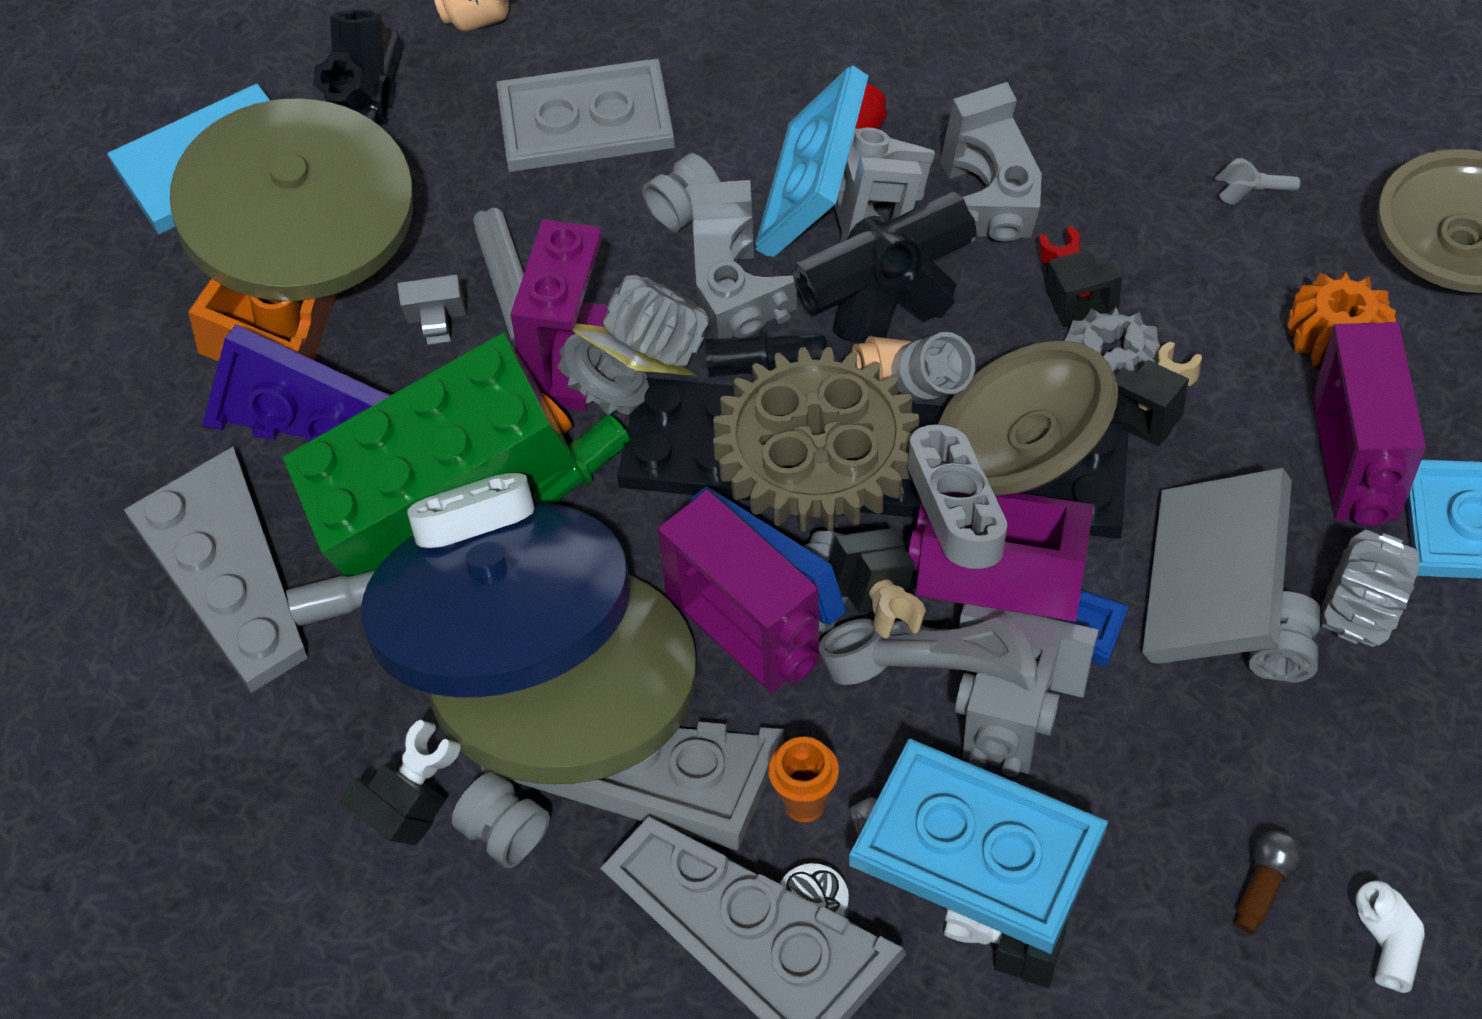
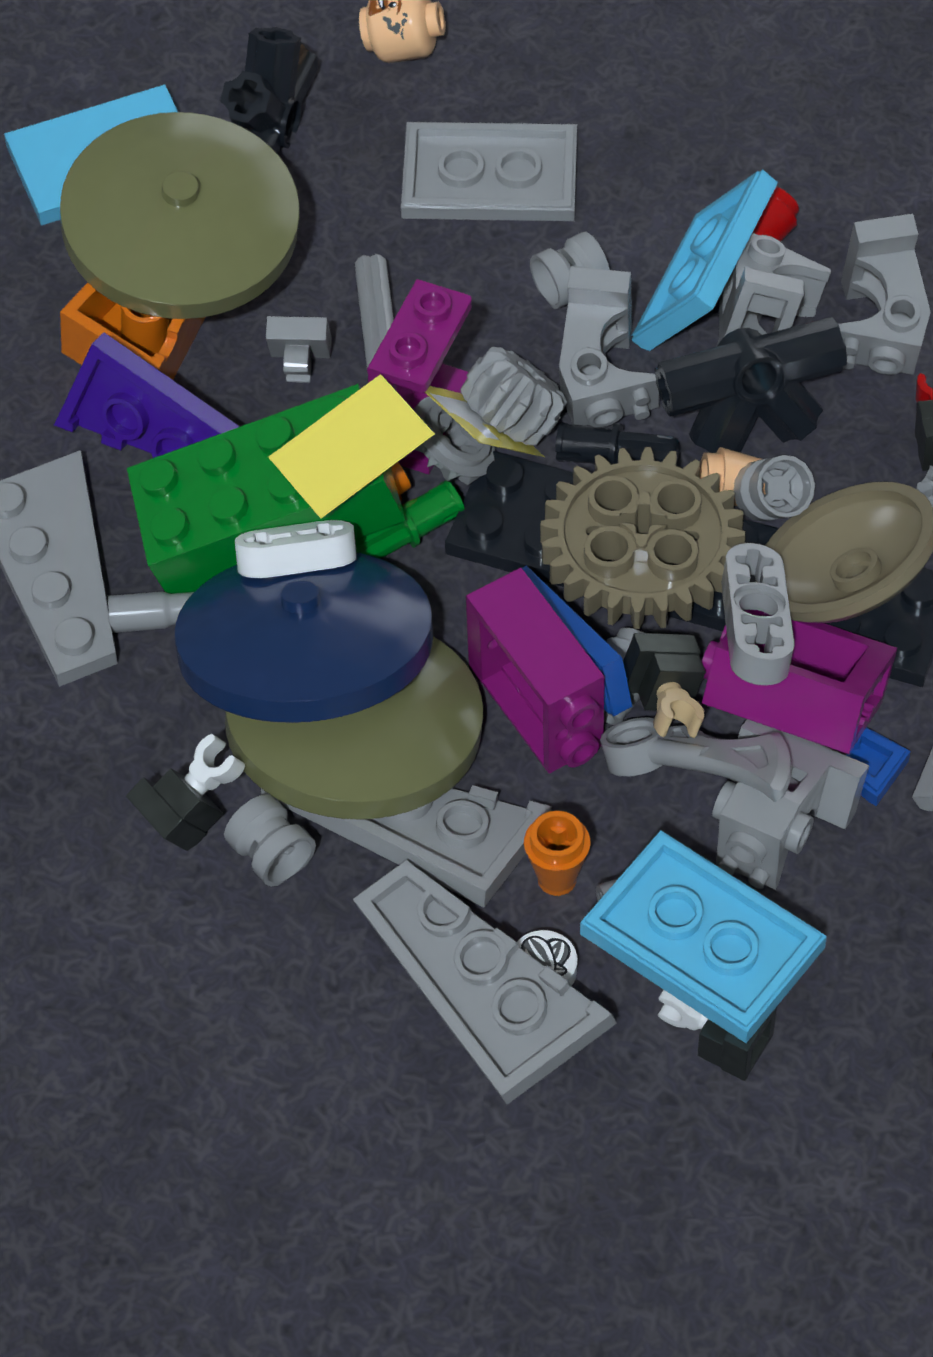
camera: 10 degrees right, 0 degrees up
(509, 396) = (351, 446): none -> light yellow sticker

